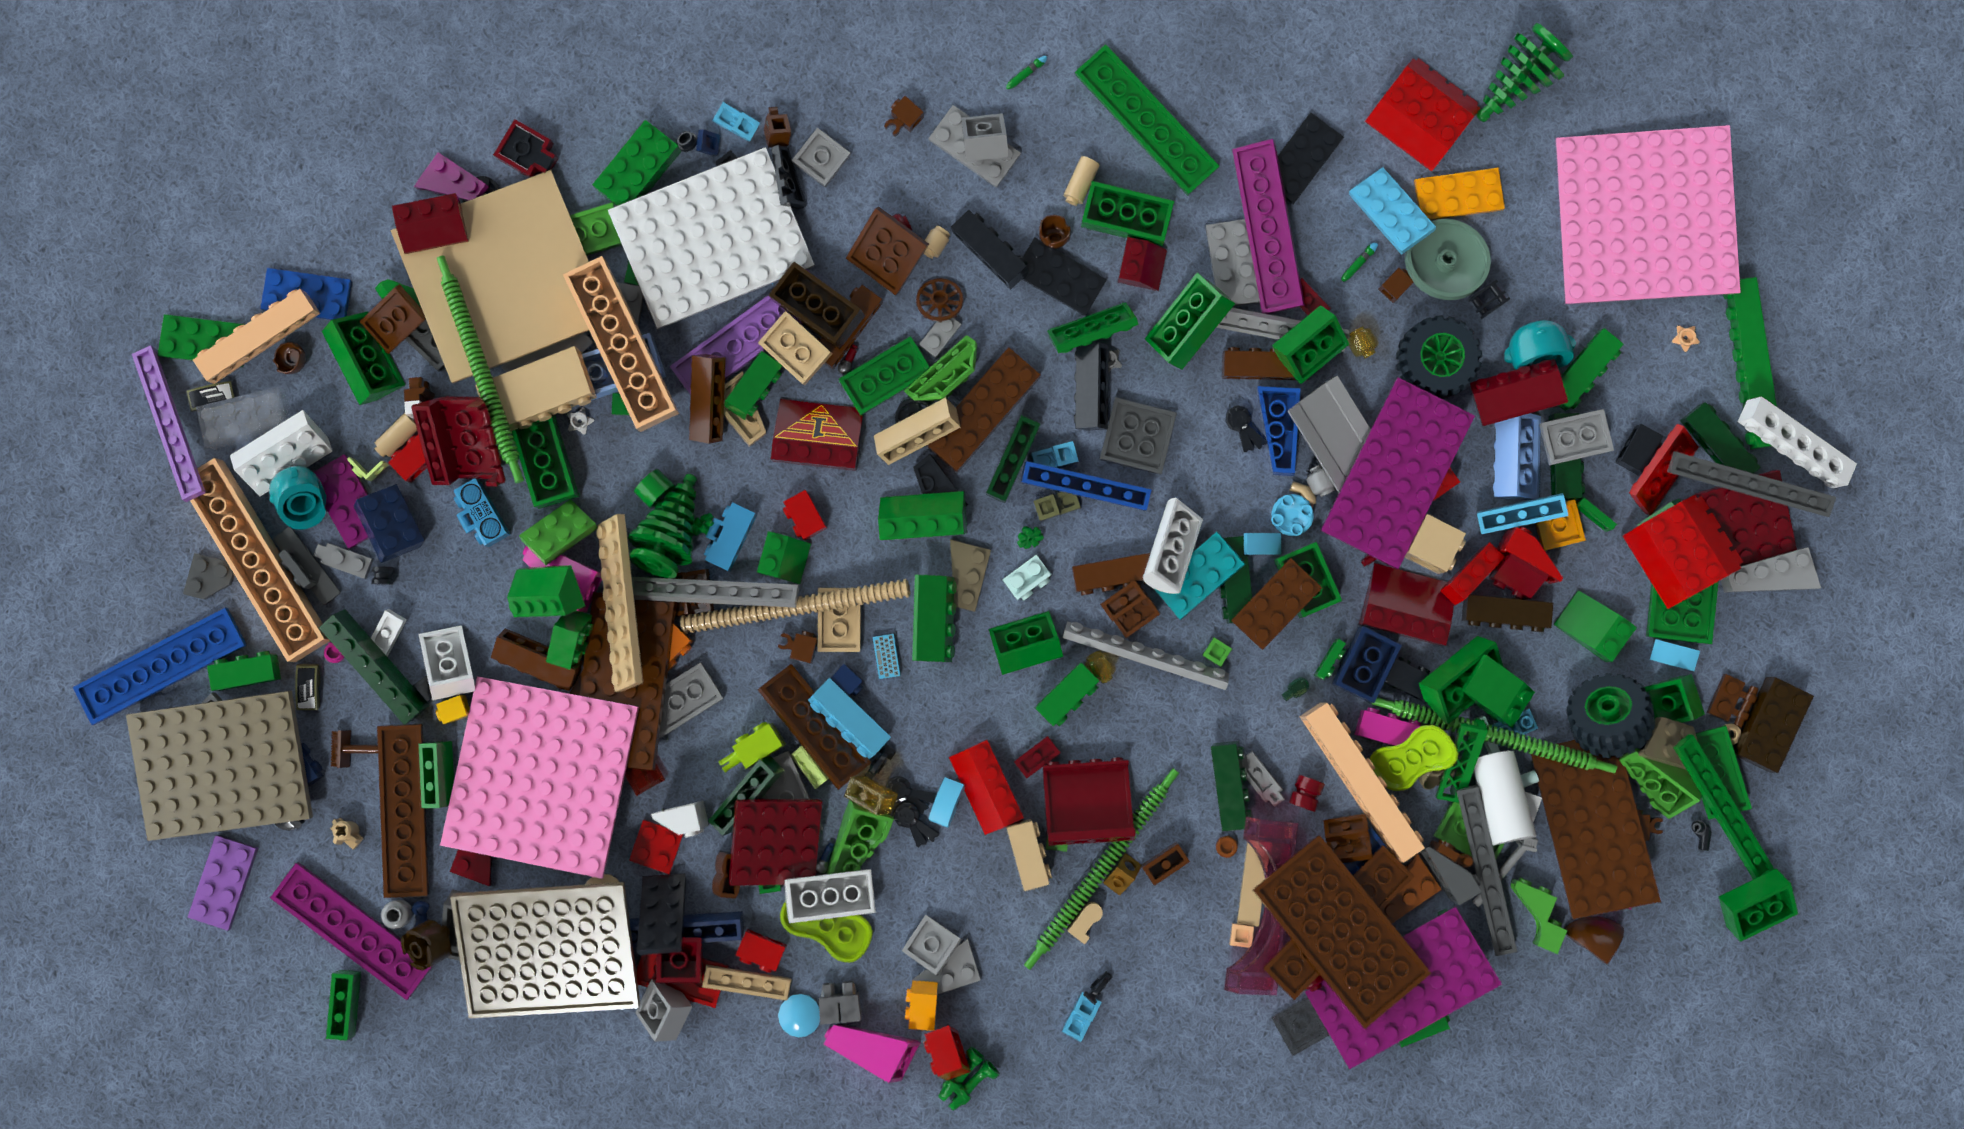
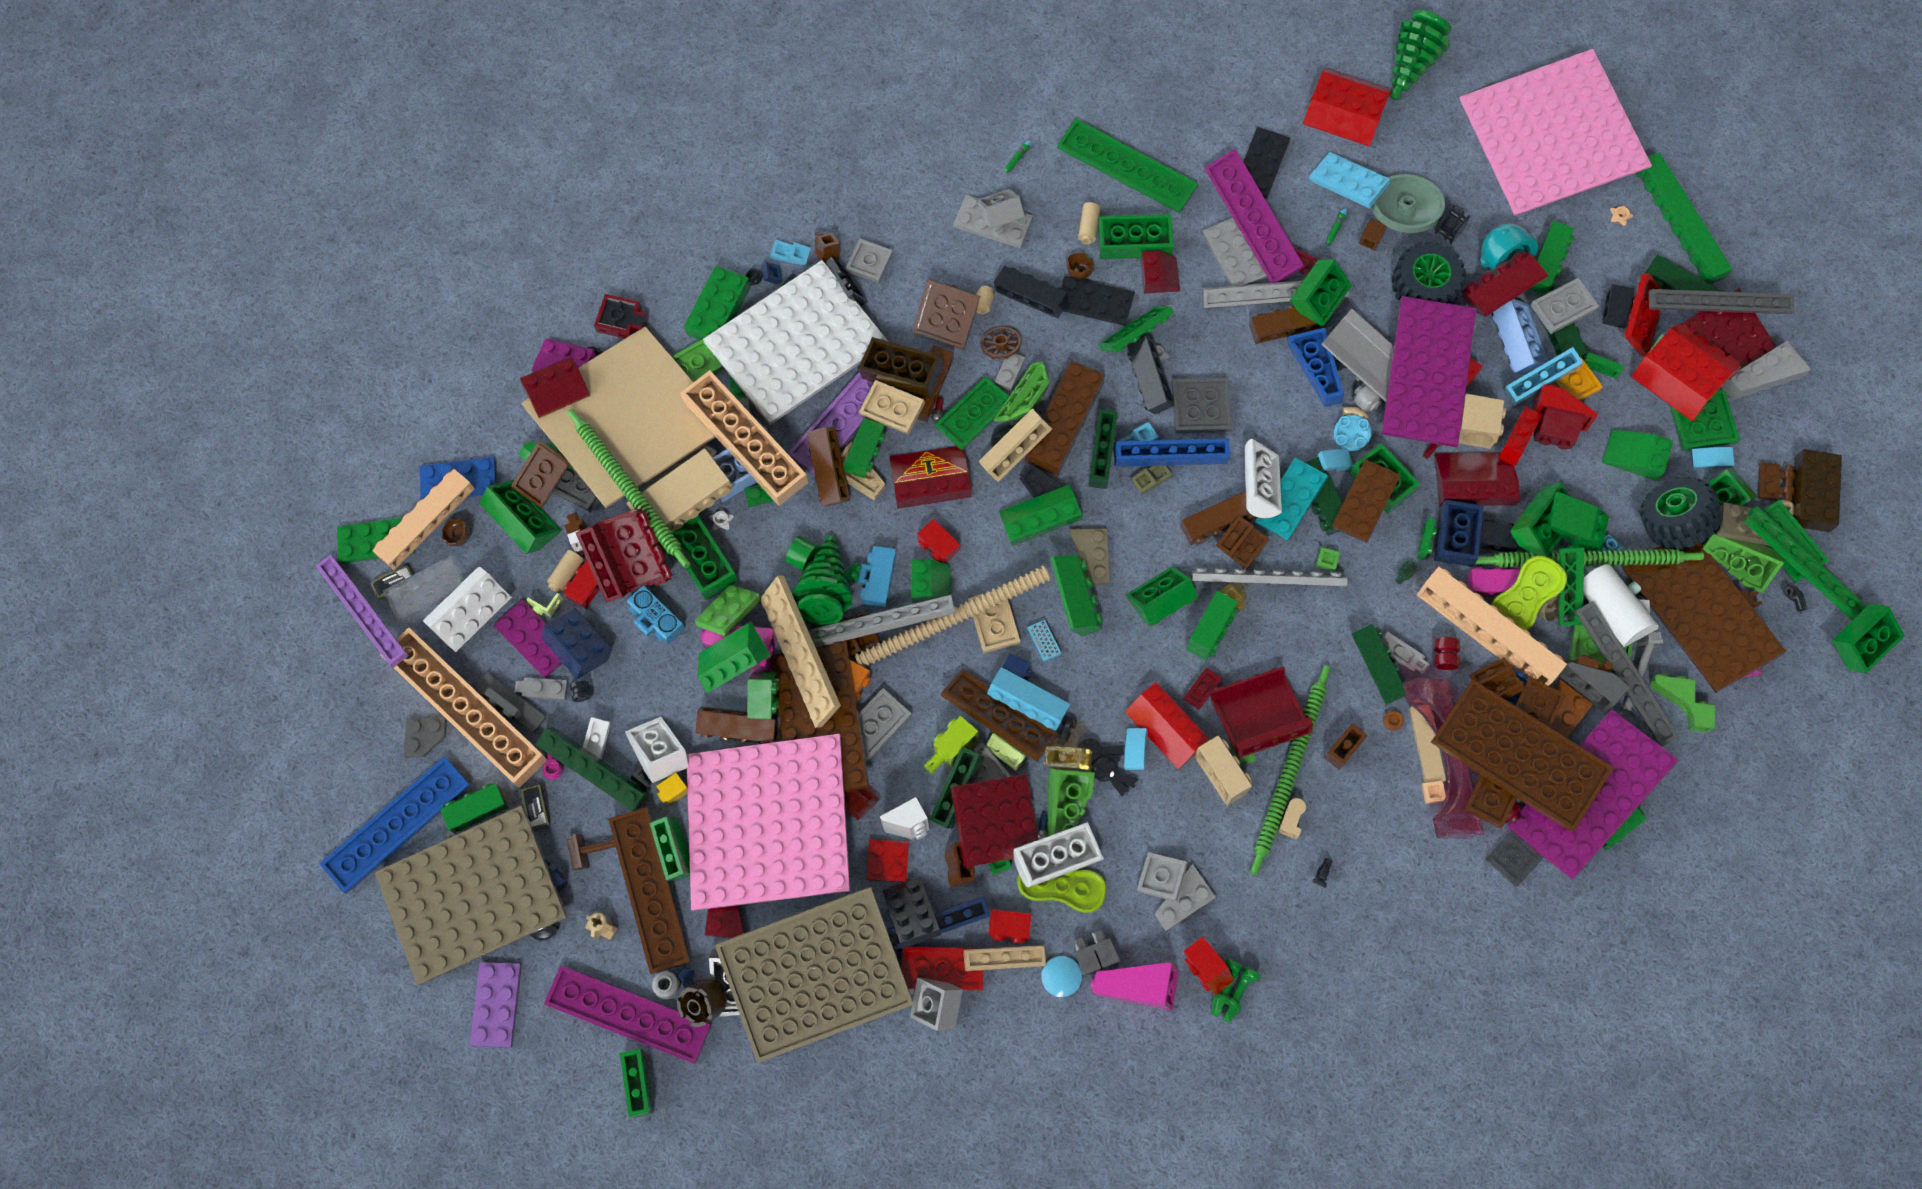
camera: 15 degrees left, 15 degrees down
(298, 497) = (502, 646): teal piece -> none
(681, 966) = (941, 953): dark red slope -> none
(802, 647) = (968, 652): reddish brown brick -> none
(905, 115) = (928, 211): reddish brown brick -> none
(922, 1005) = (1171, 931): light orange brick -> none
(1027, 577) = (1145, 543): light aqua bracket -> none
(1029, 537) = (1137, 508): green plant -> none
(1080, 1018) = (1316, 906): medium azure slope -> none
(1121, 876) = (1311, 770): pearl gold bracket -> none
(1189, 321) = (1215, 301): green slope -> none
(1239, 419) = (1282, 371): black piece -> none
(1362, 342) = (1362, 283): clear yellow head -> none
(1460, 194) = (1400, 155): light orange plate -> none
(1507, 612) = (1560, 460): dark brown brick -> none
(1597, 935) = (1744, 703): reddish brown brick -> none
(1797, 442) = (1744, 263): white brick -> none

